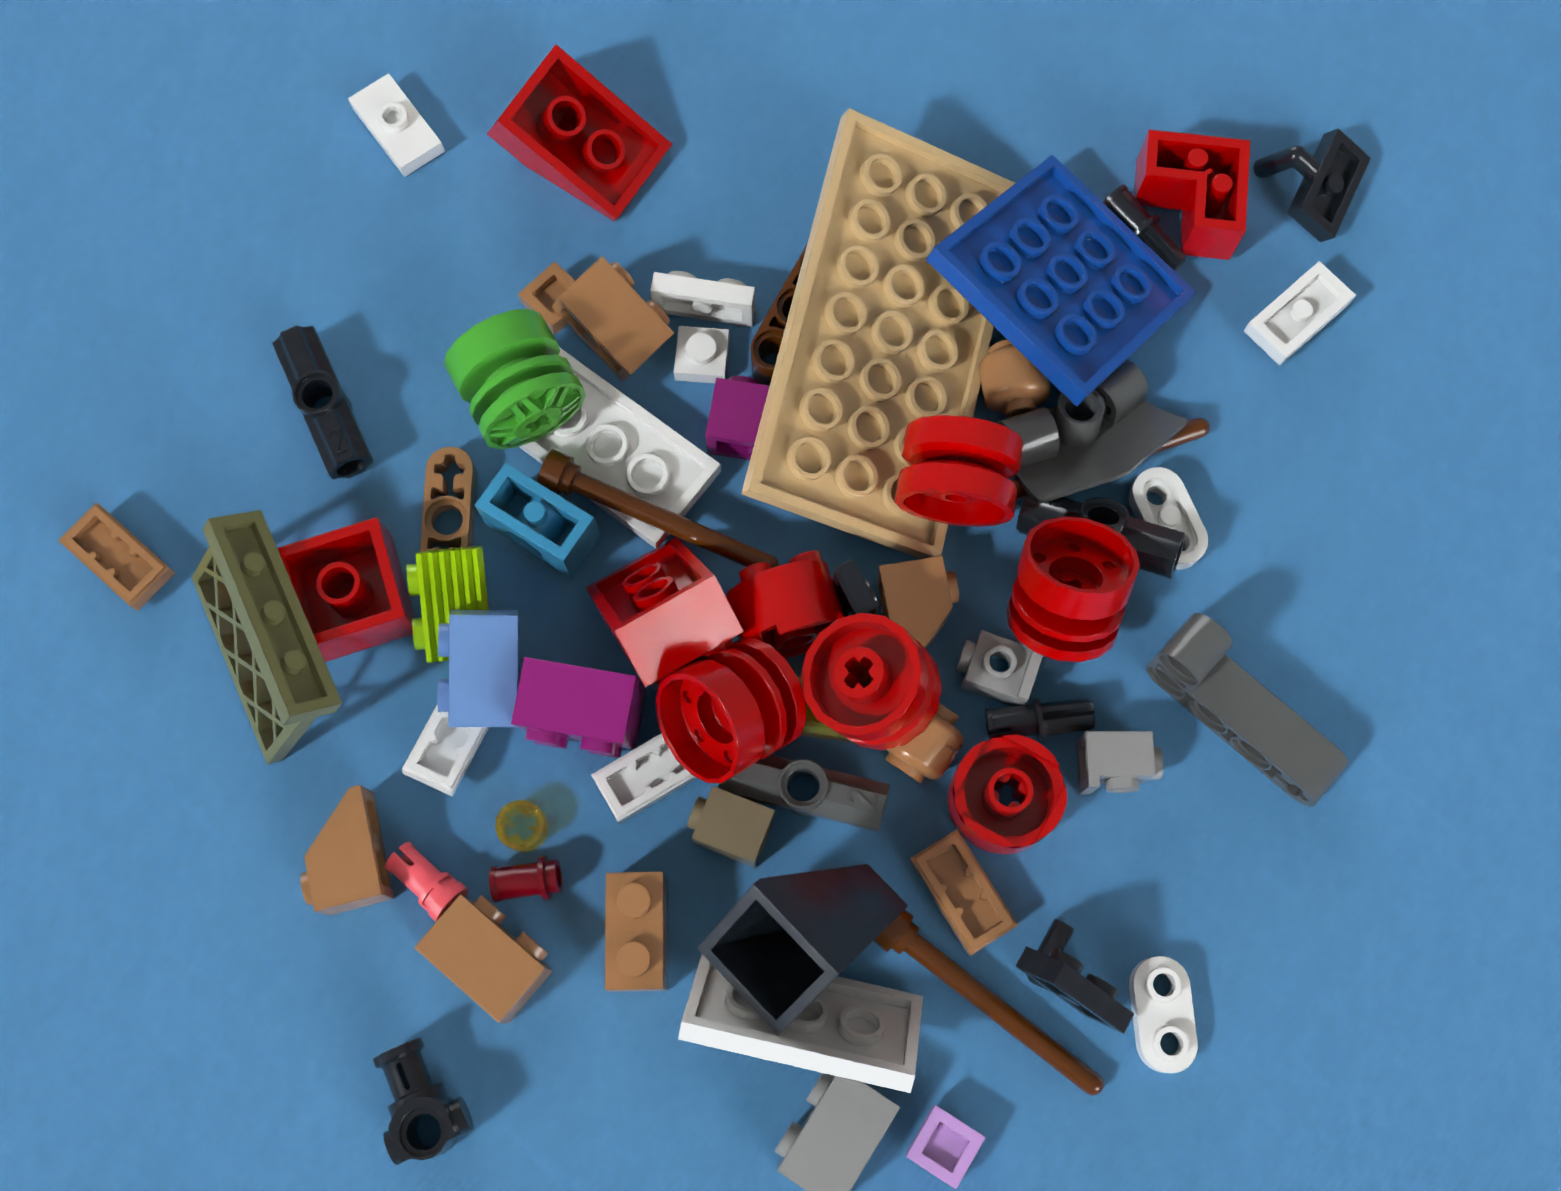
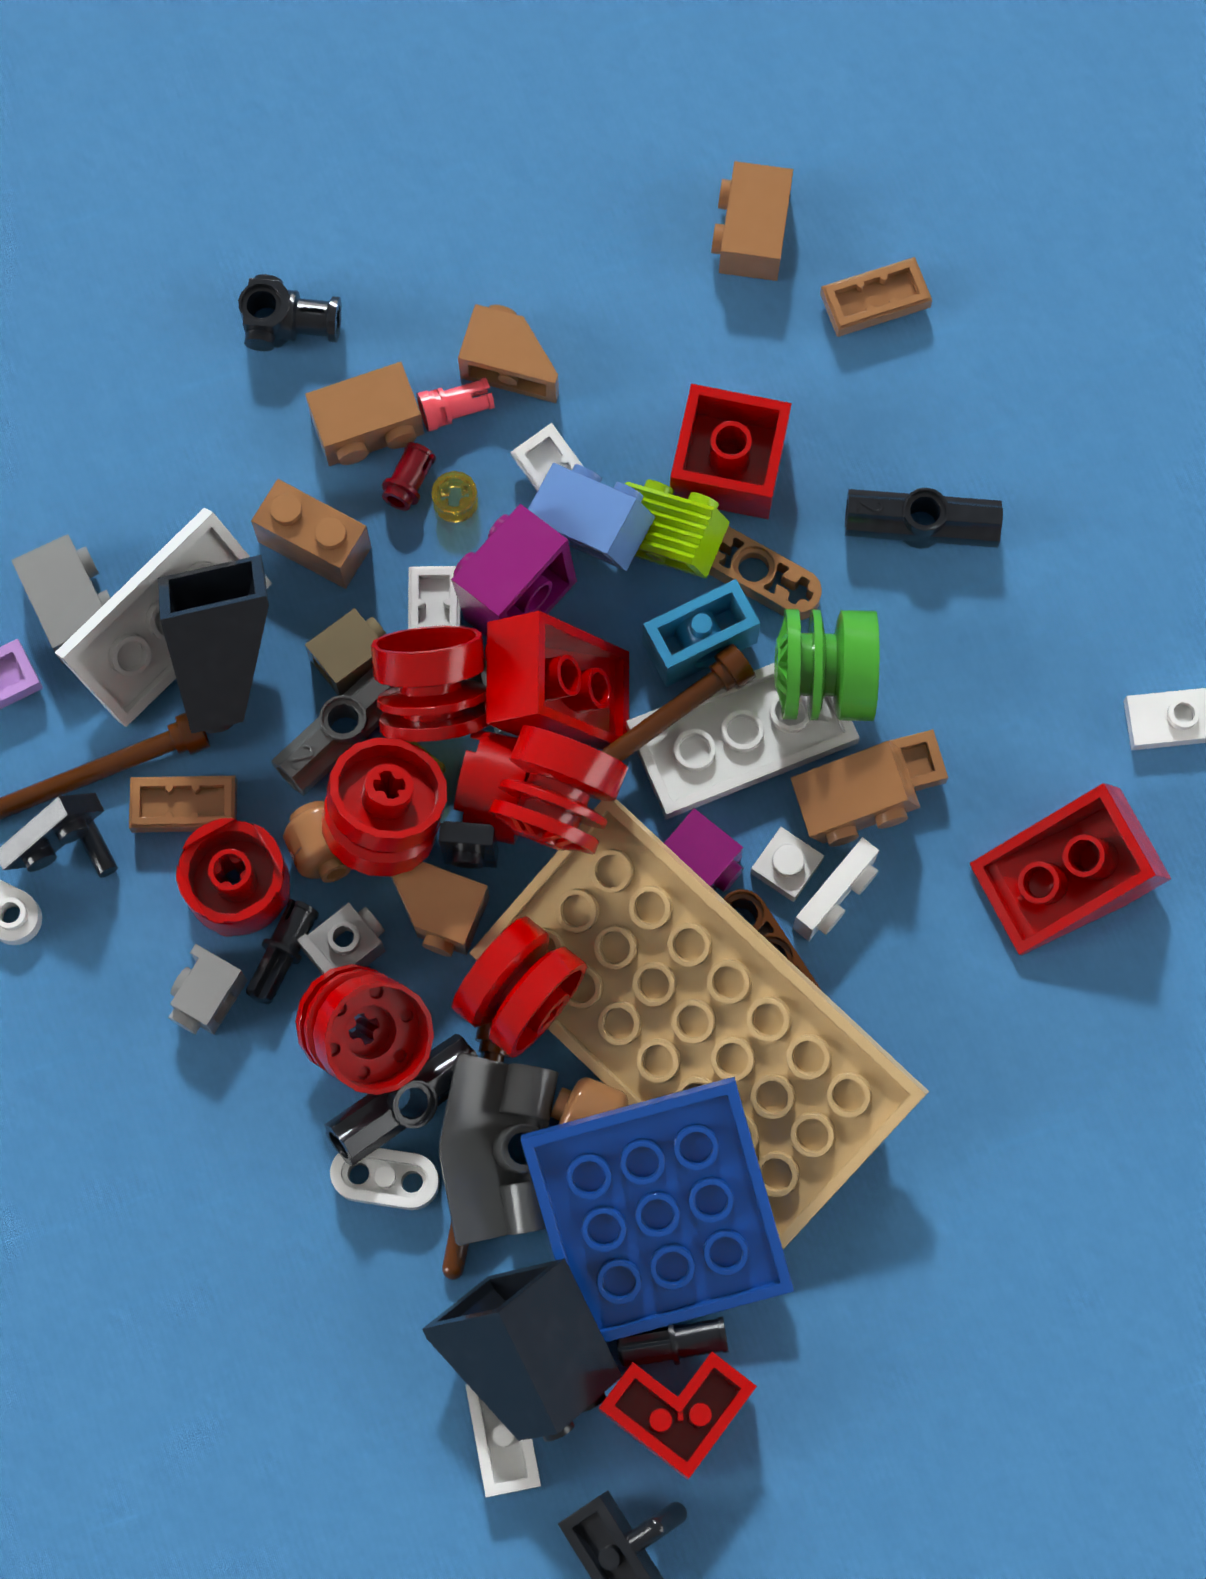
camera: 120 degrees right, 0 degrees up
(87, 705) = (754, 220): none -> medium nougat brick
(263, 632) = (725, 369): olive fence -> none
(787, 514) = (558, 790): none -> red wheel
(1234, 318) = (528, 1349): none -> black slope
(1244, 712) = (176, 1126): dark grey beam -> none

